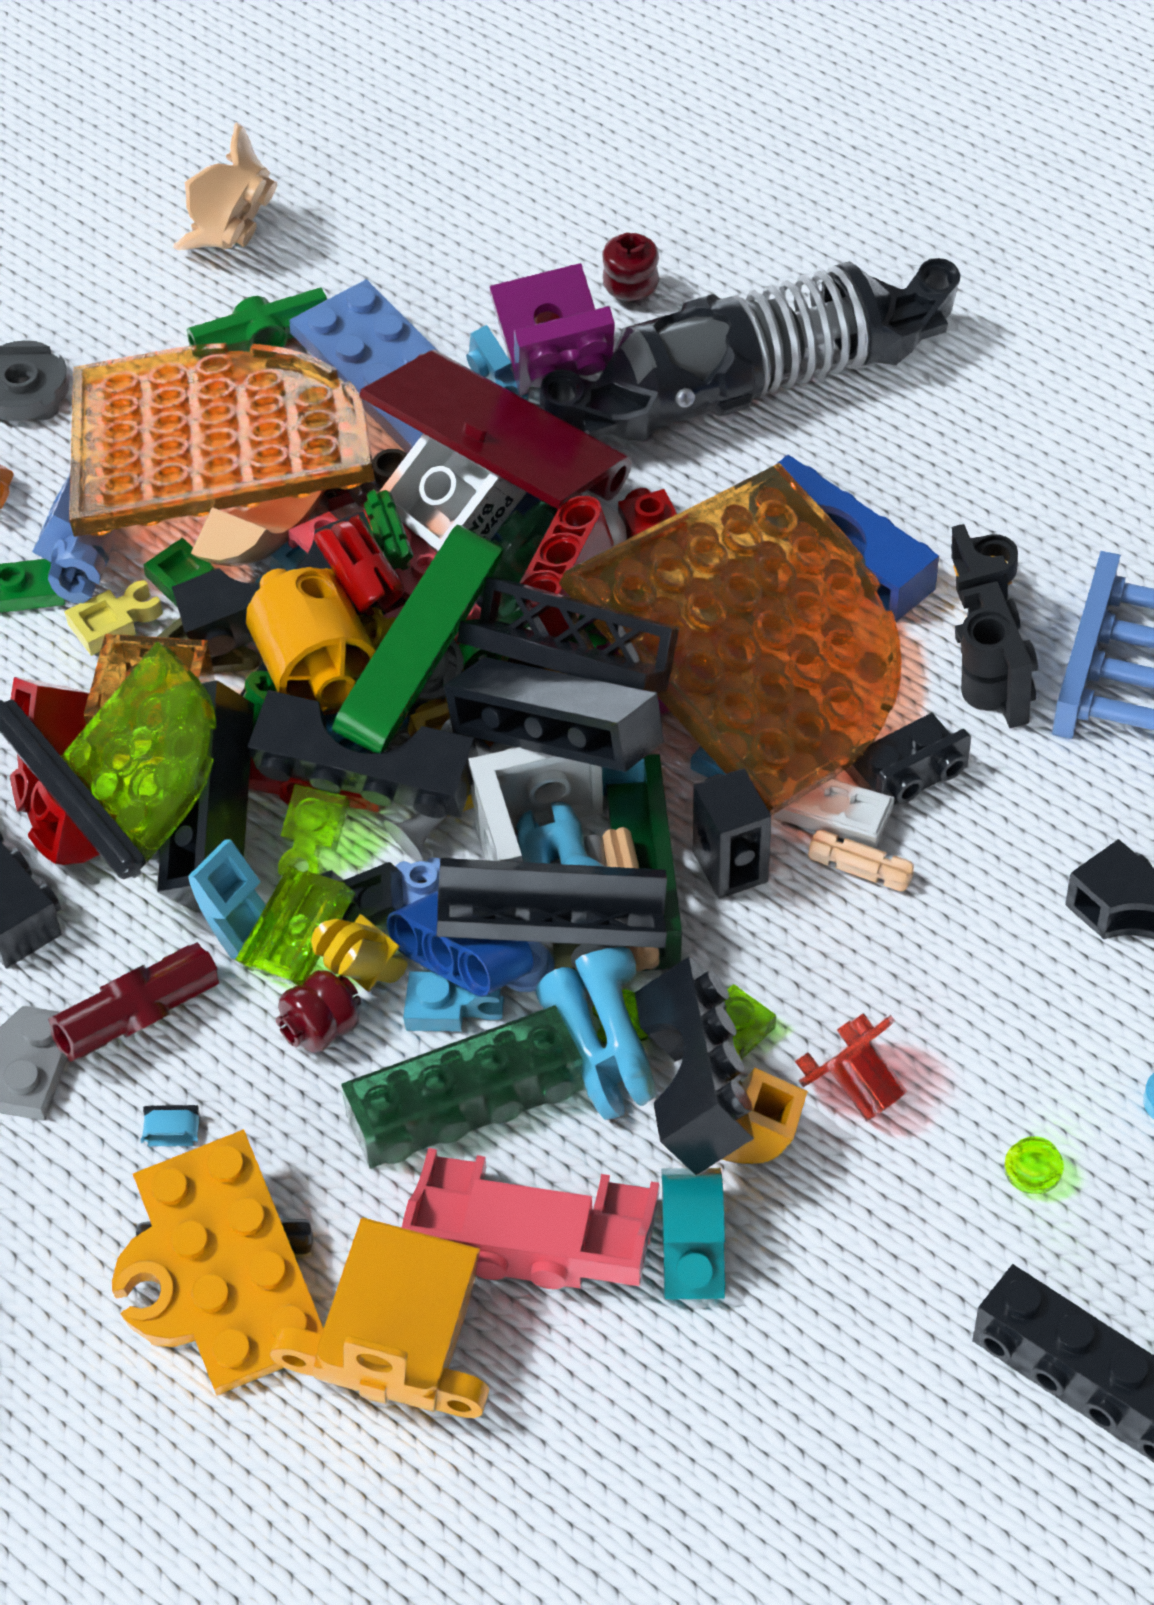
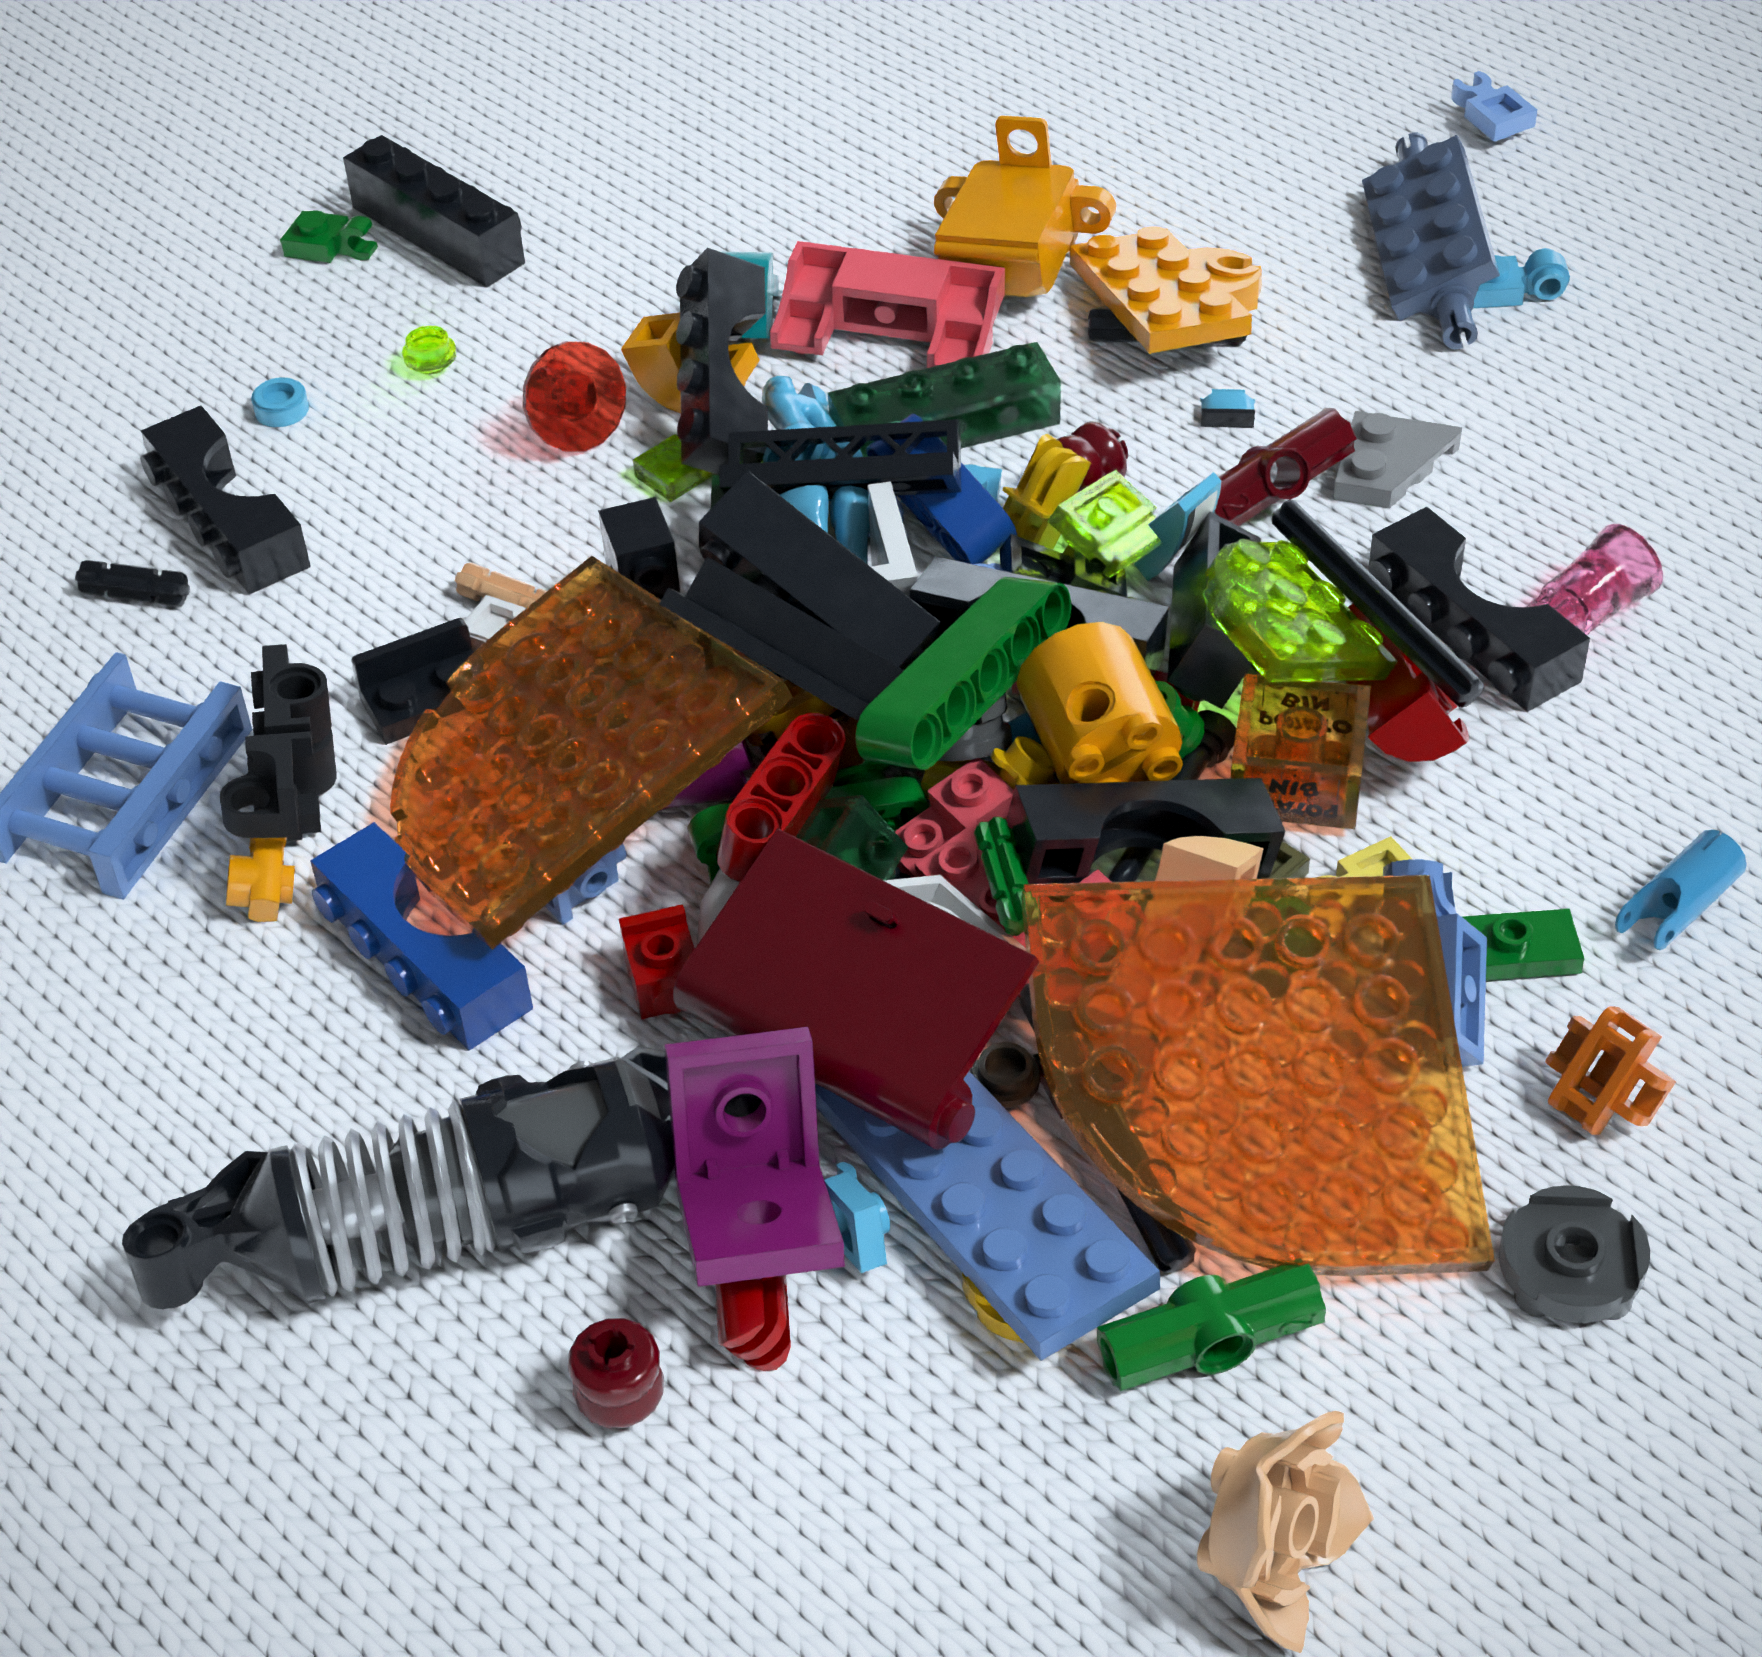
camera: 175 degrees left, 5 degrees down
(360, 565) = (1037, 748): red arm -> none

